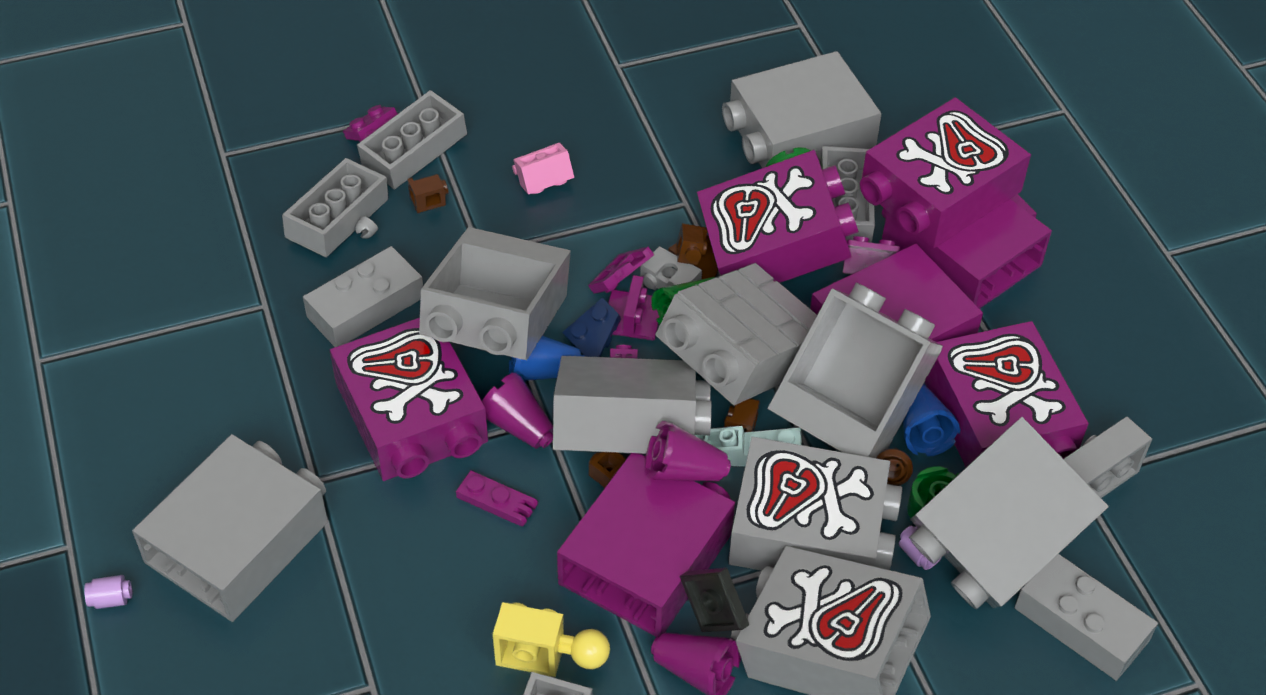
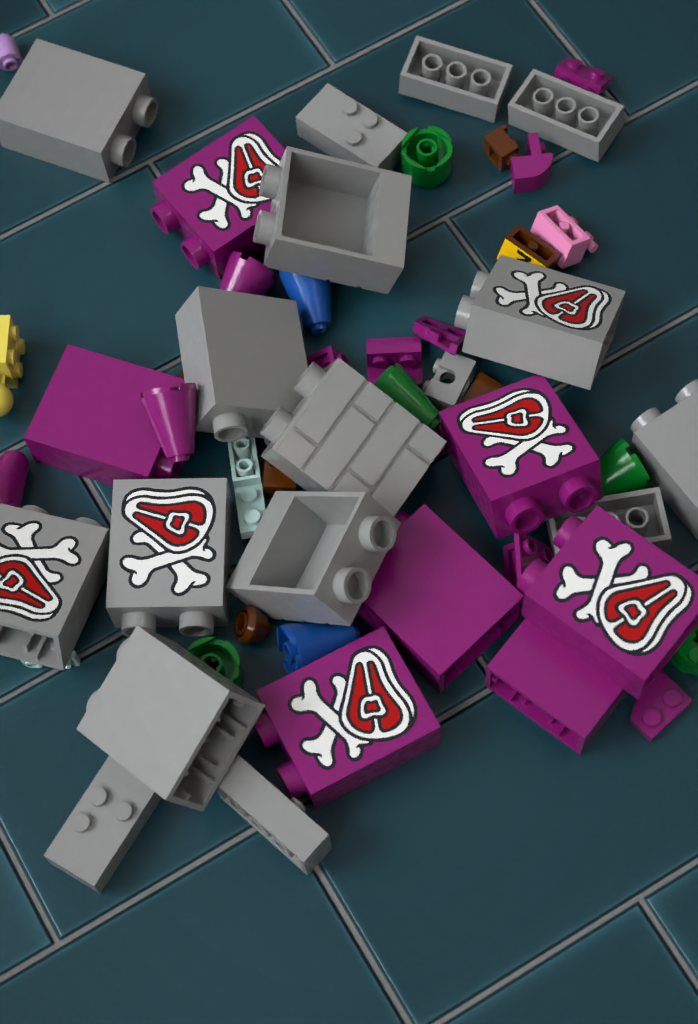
camera: 85 degrees right, 15 degrees up
(366, 226) = (444, 112): light grey hinge -> none
(419, 241) = (427, 156): none -> green brick
(457, 173) = (531, 171): none -> magenta brick
(496, 498) = (154, 299): magenta hinge -> none
(557, 193) = (528, 248): none -> reddish brown brick
(593, 329) = (358, 330): dark blue wing -> none
(644, 181) = (540, 320): none -> light grey brick
(691, 244) = (476, 383): reddish brown brick -> none
(714, 600) = (34, 476): pearl dark grey tile -> none

